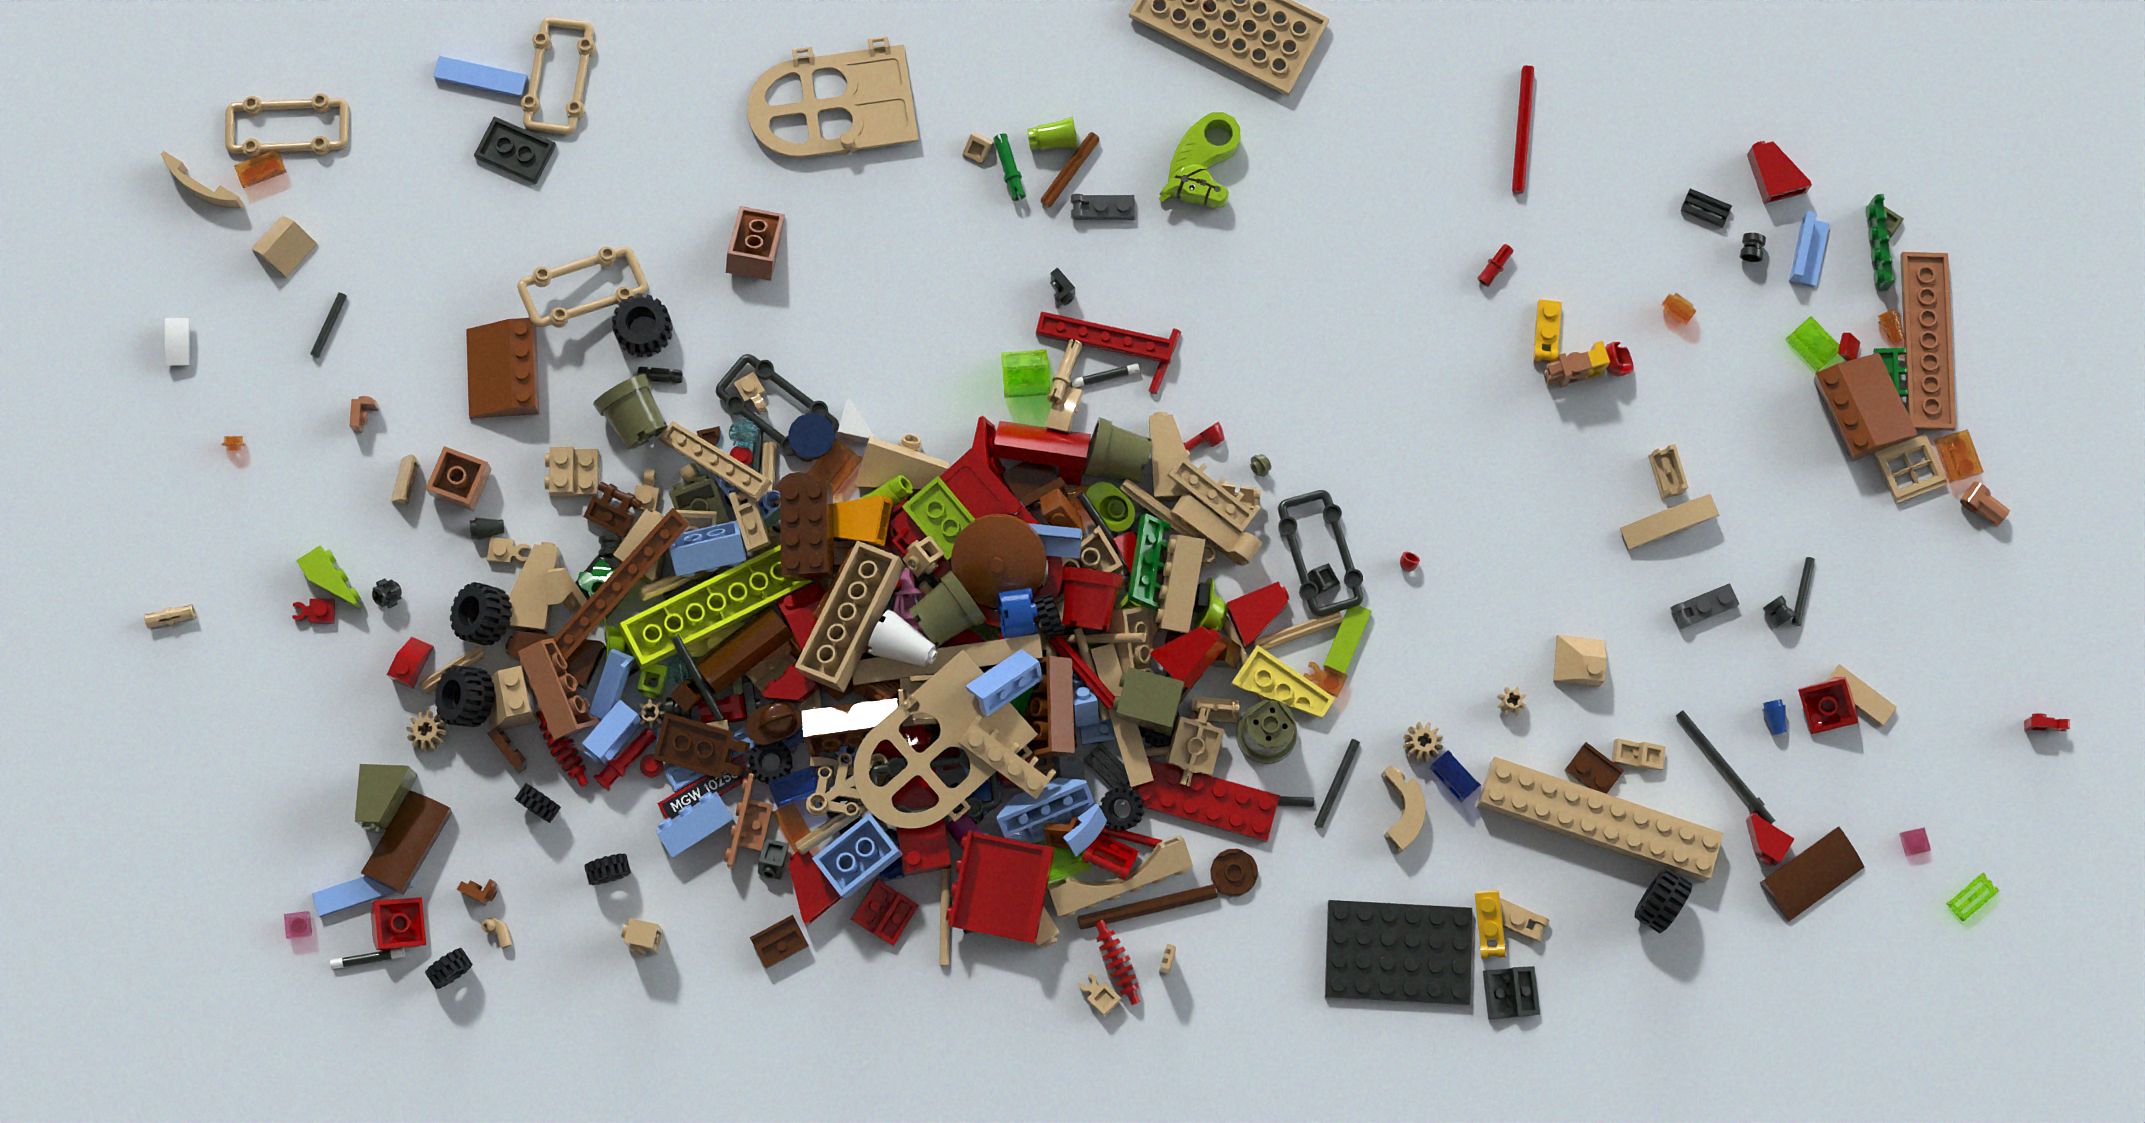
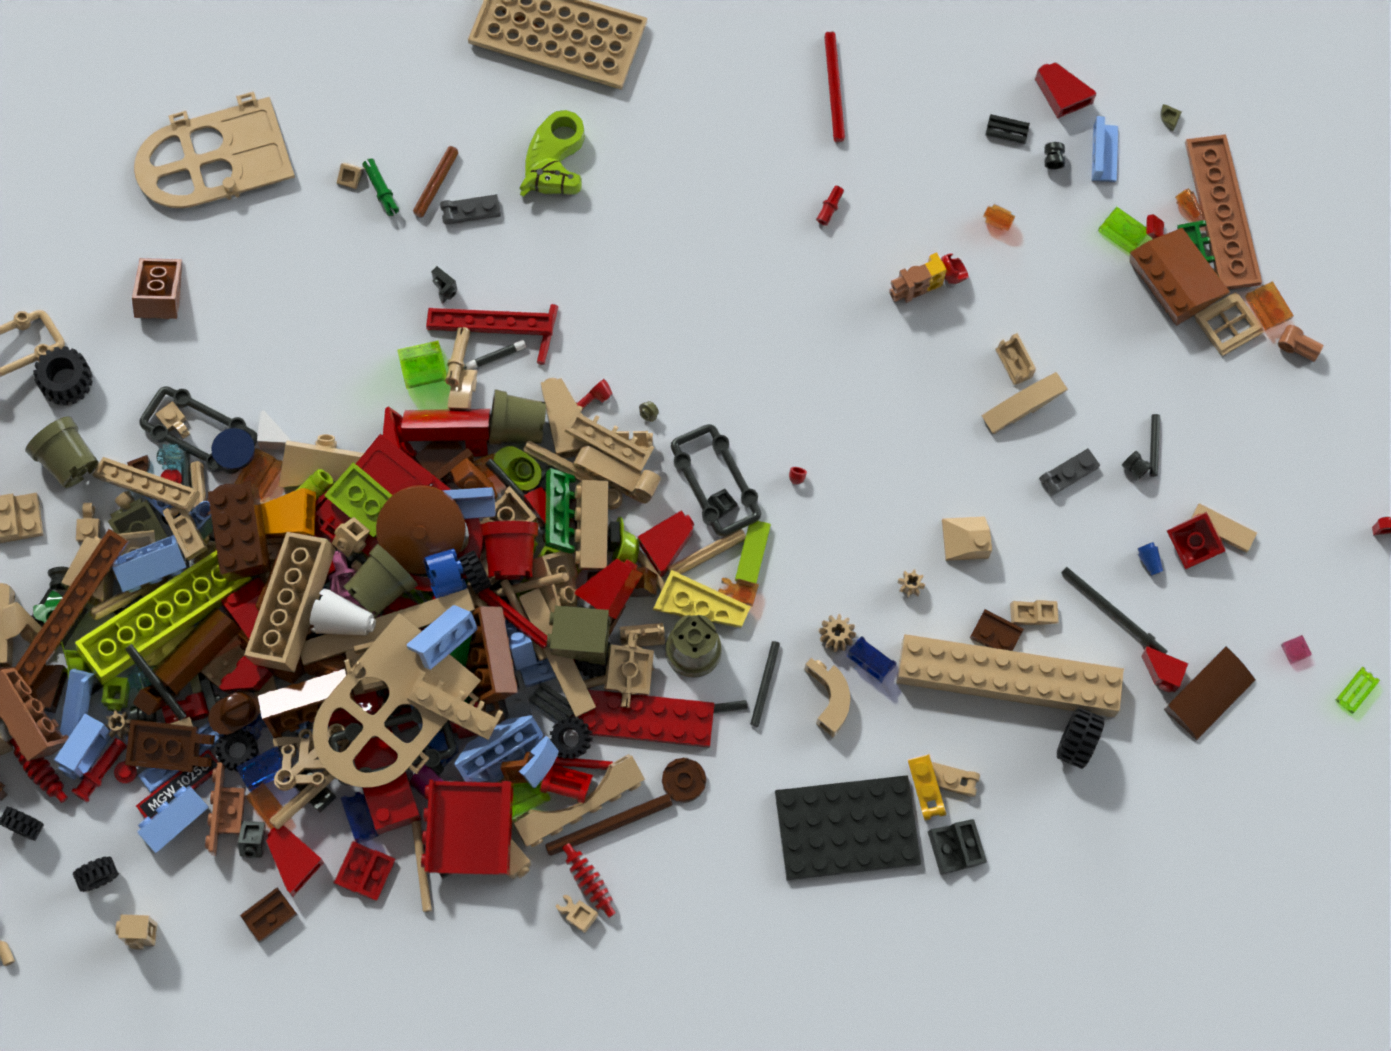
camera: 10 degrees left, 5 degrees down
(610, 516) = (53, 550): reddish brown plate -> none
(661, 374) = (89, 417): pearl dark grey axle -> none
(857, 856) = (329, 821): light blue brick -> none
(1053, 135) = (416, 153): lime plant -> none
(1167, 959) = (634, 868): tan tile -> none
(1547, 330) = (885, 254): yellow plate -> none
(1878, 234) = (1165, 133): green hinge -> none

